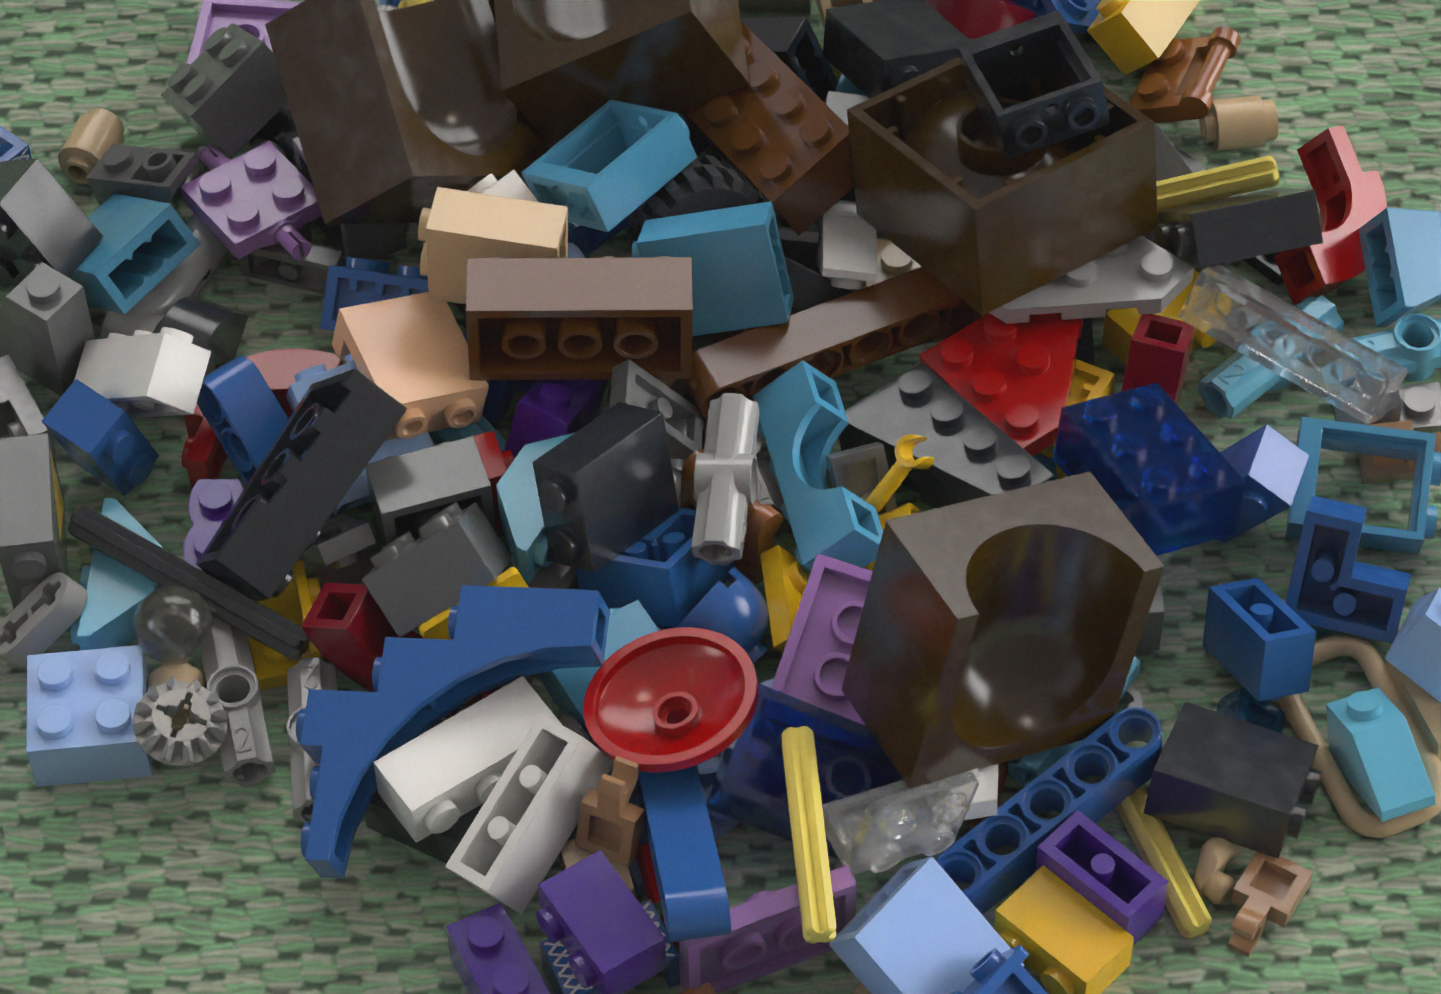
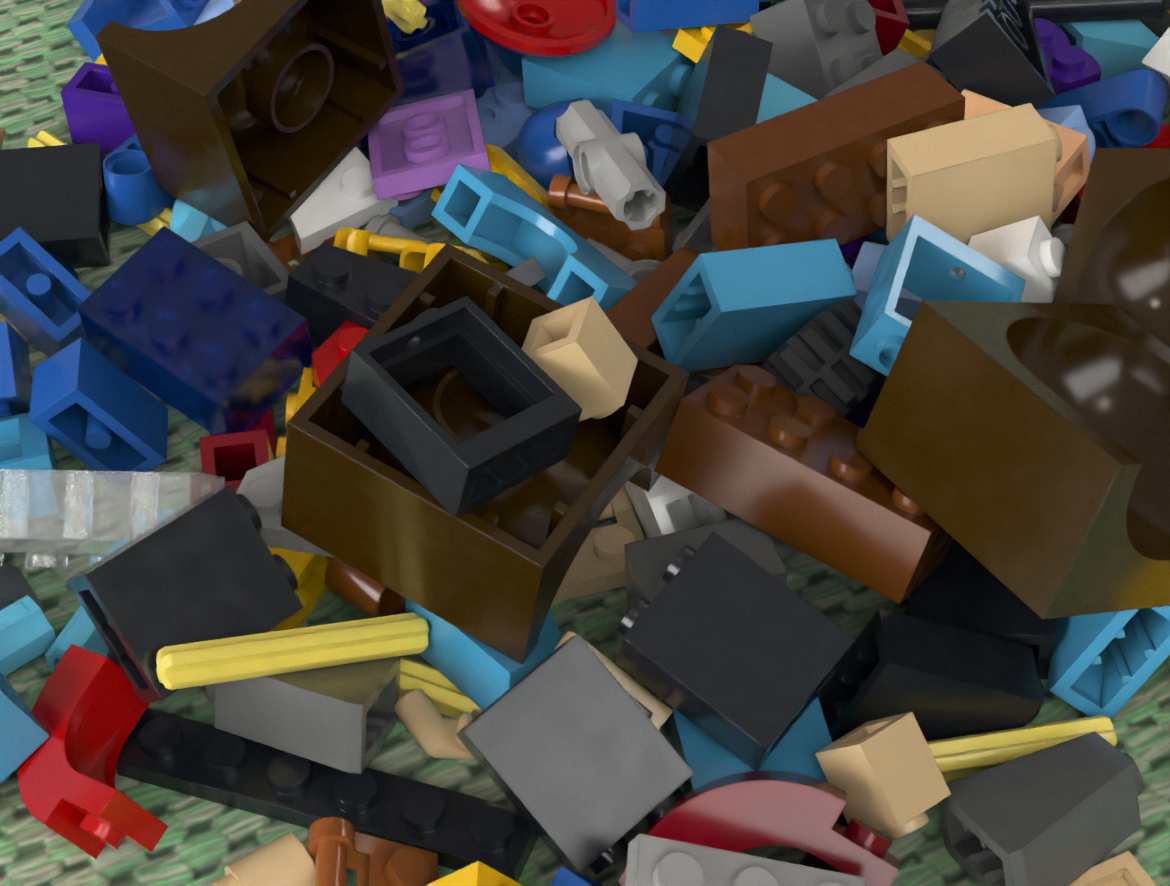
camera: 155 degrees right, 10 degrees down
(931, 104) = (583, 356): none -> tan brick

